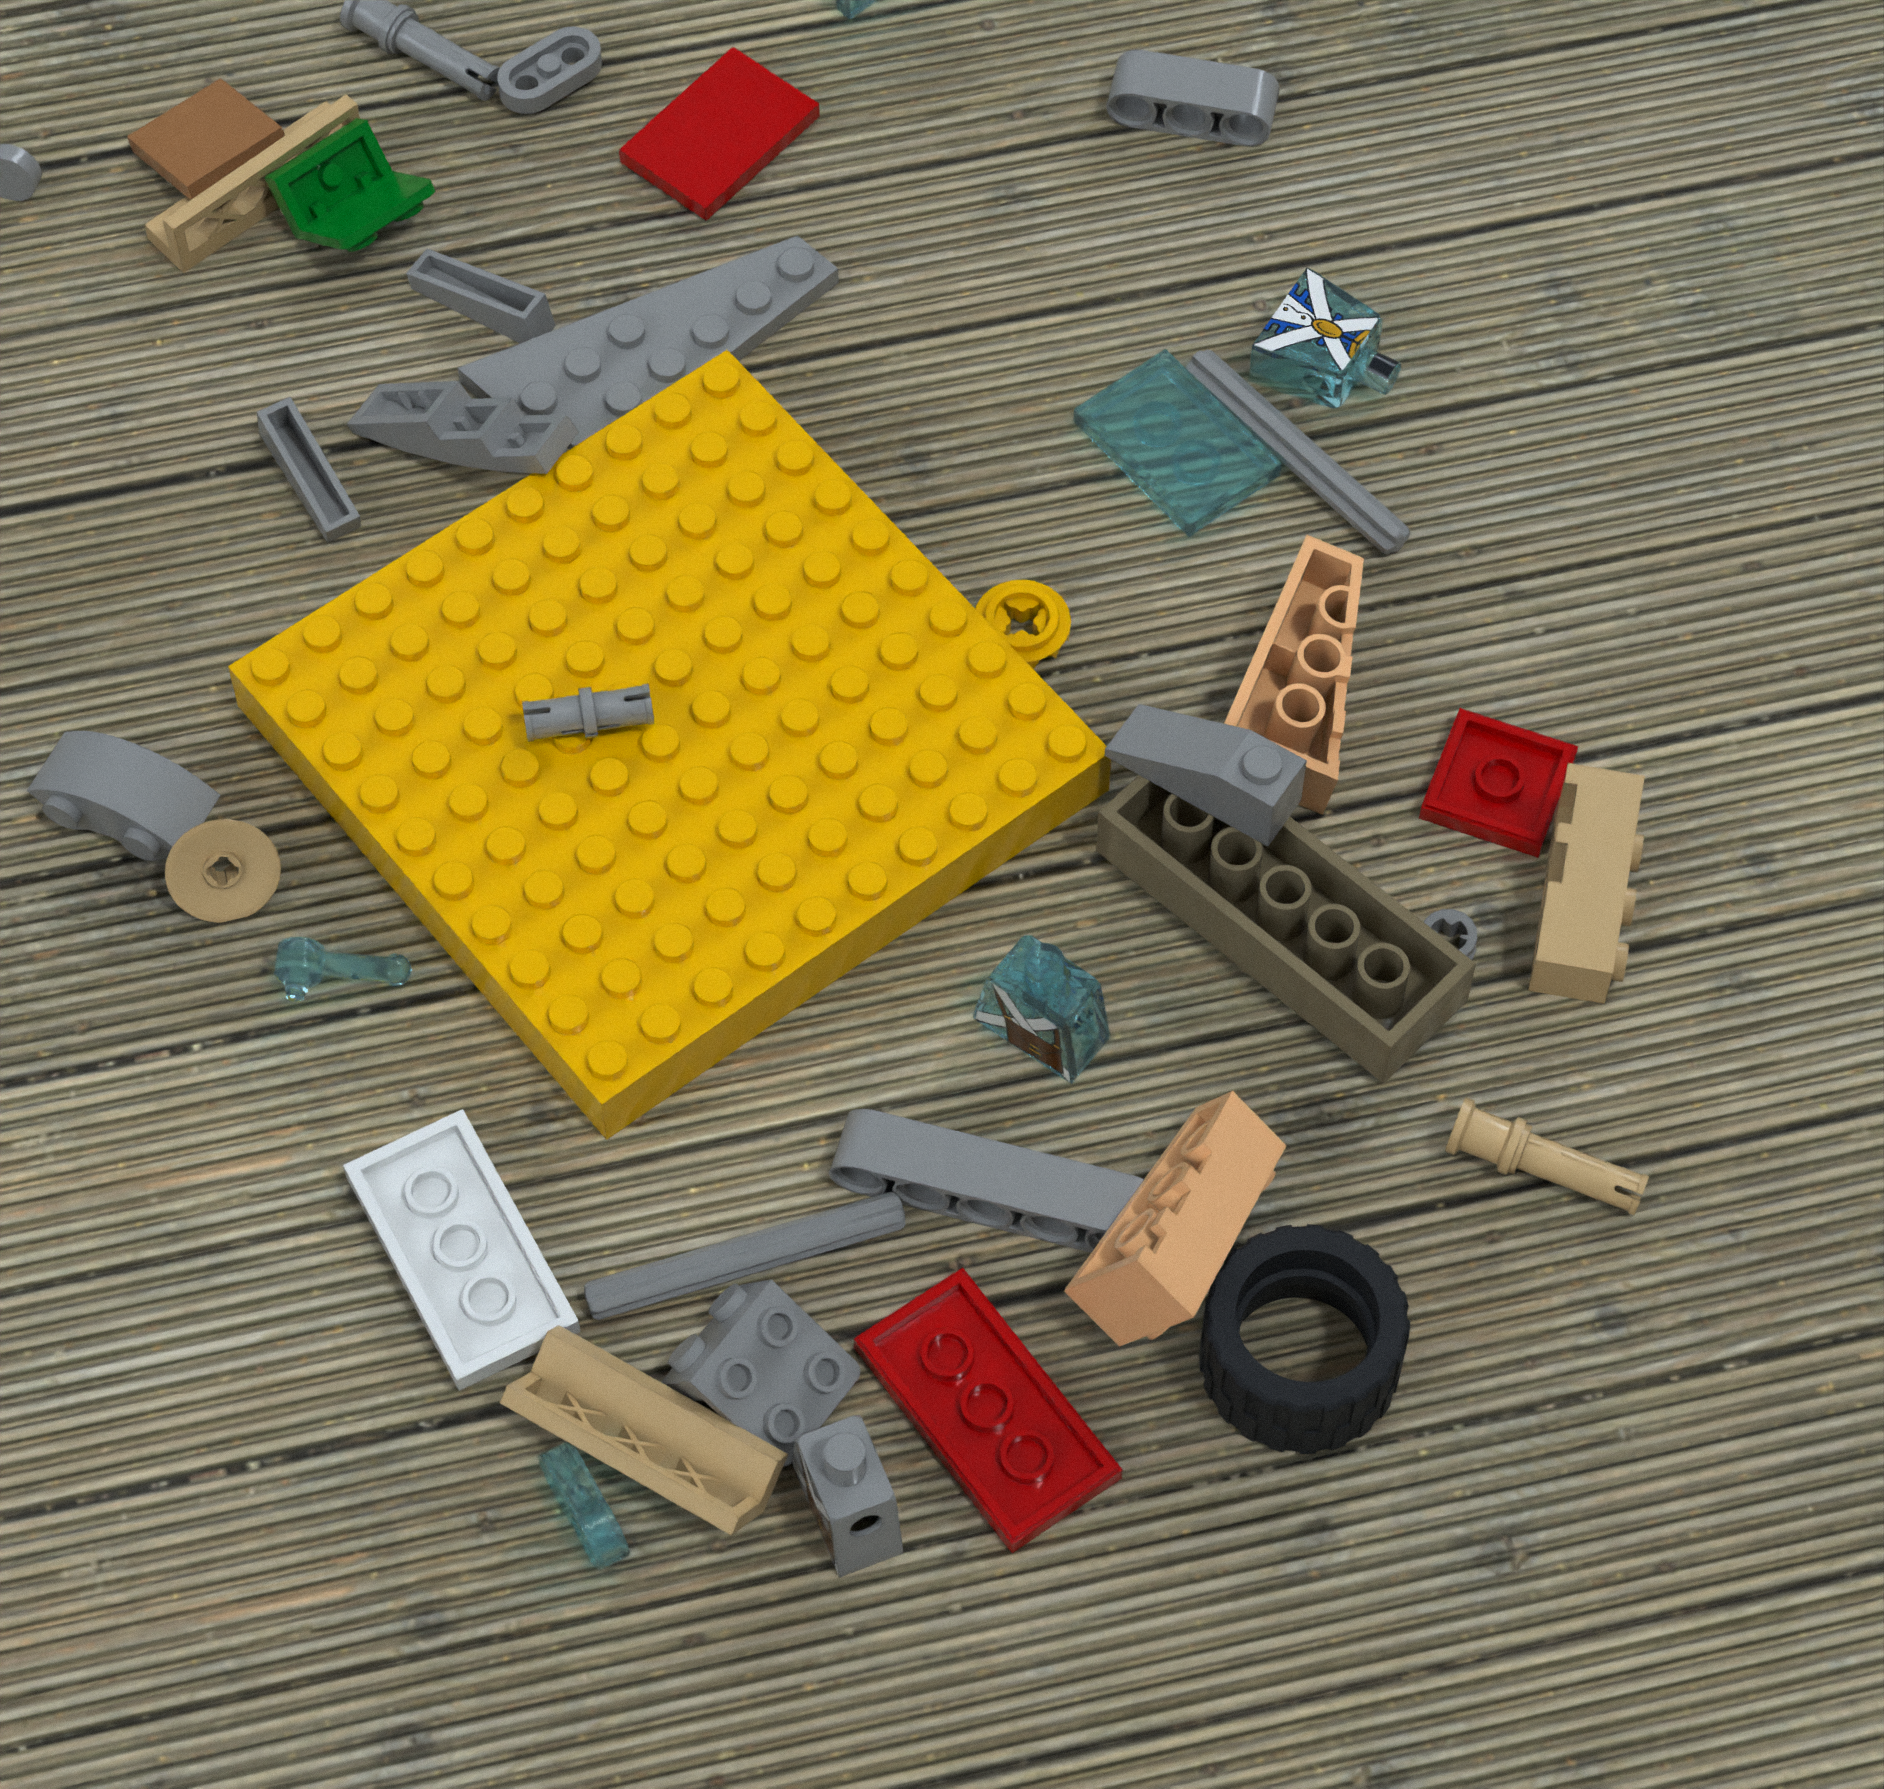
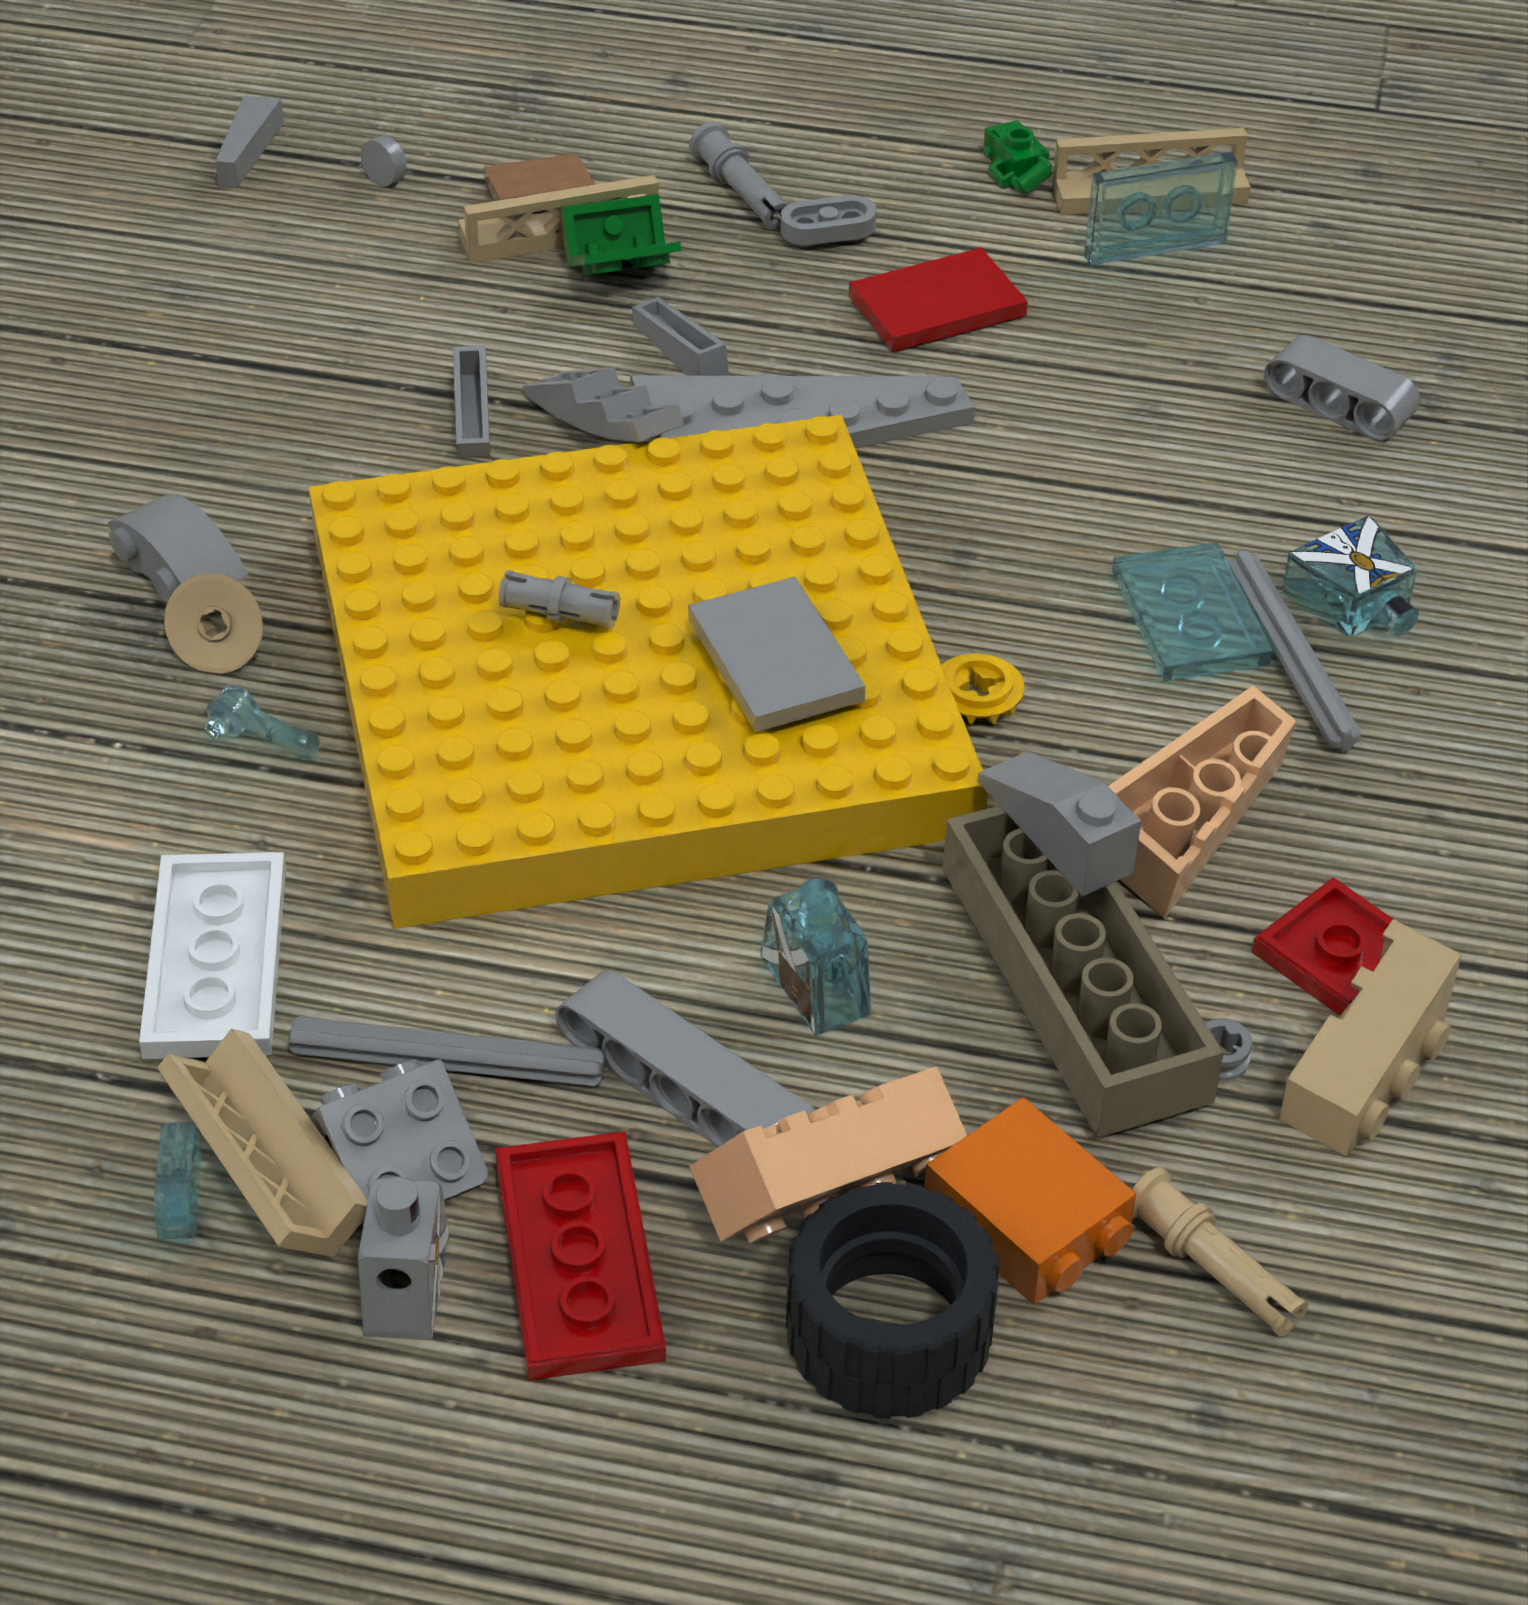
camera: 25 degrees right, 15 degrees down
(836, 688) = (776, 654): none -> light grey tile
(1366, 1176) = (1036, 1197): none -> orange brick

